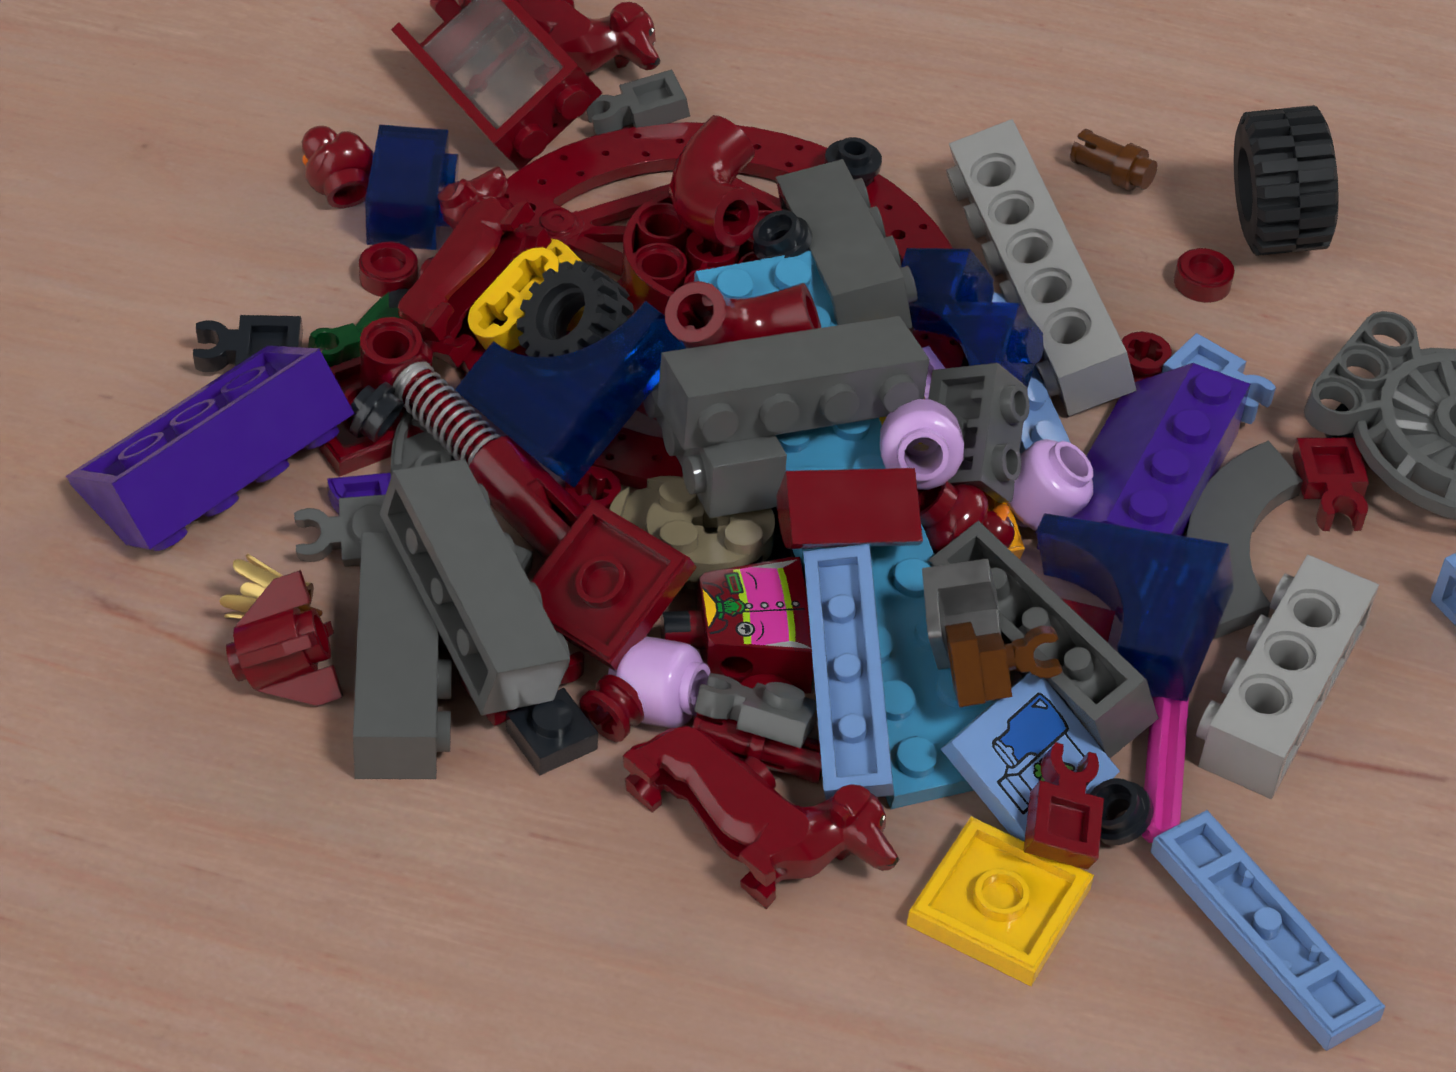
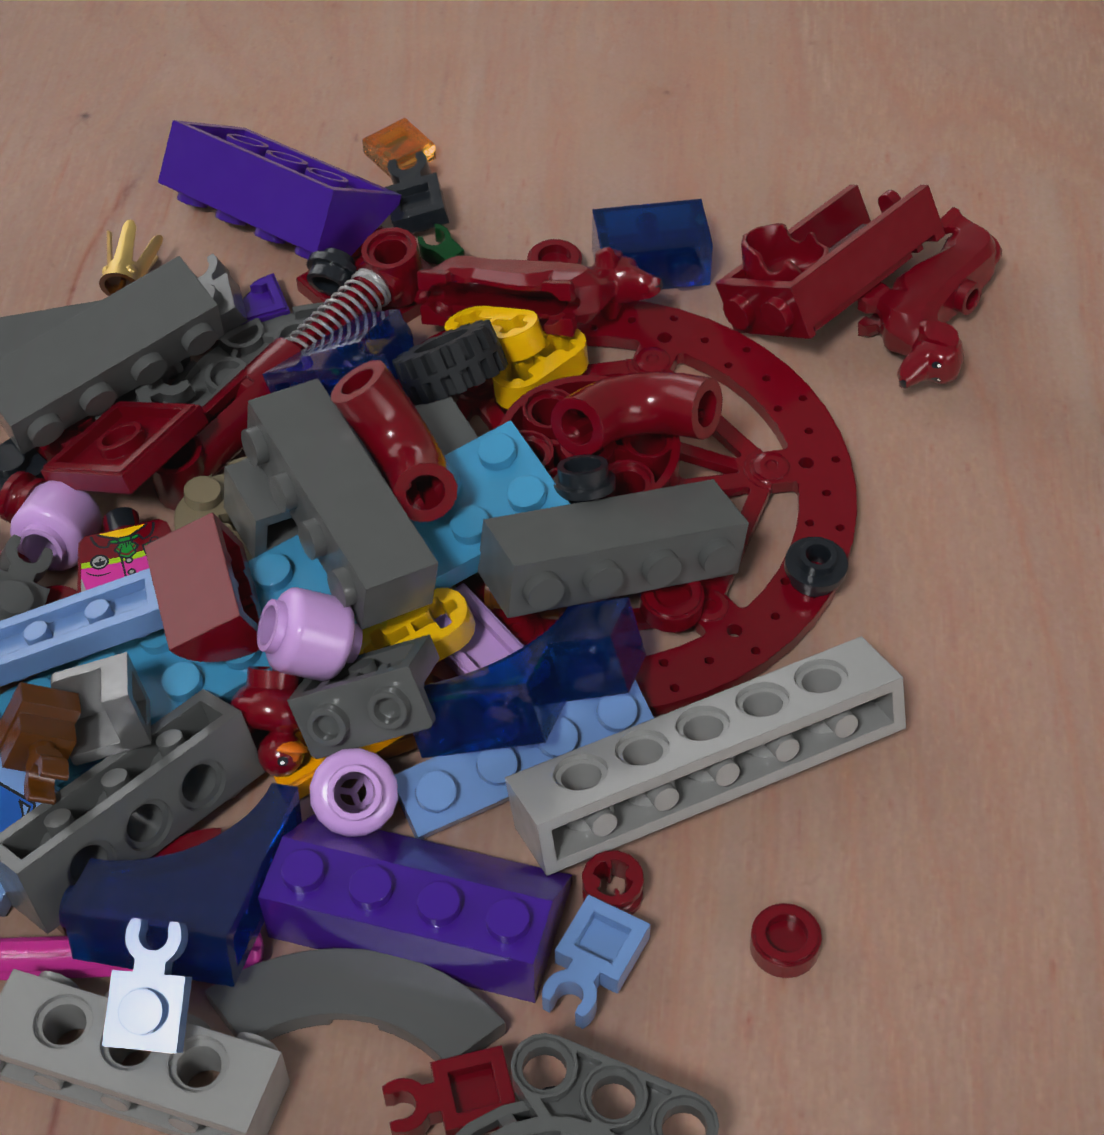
camera: 85 degrees right, 5 degrees up
(152, 358) = (398, 142): none -> clear orange tile
(282, 646) = (60, 271): dark red brick -> none
(337, 165) = (654, 186): dark red animal -> none
(503, 80) = (776, 256): none -> dark red hair
(641, 103) = (847, 395): dark grey plate -> none
(1126, 165) = (936, 832): reddish brown animal -> none
(1270, 608) = (149, 1004): none -> plate
(1285, 180) = (914, 976): black tyre -> none

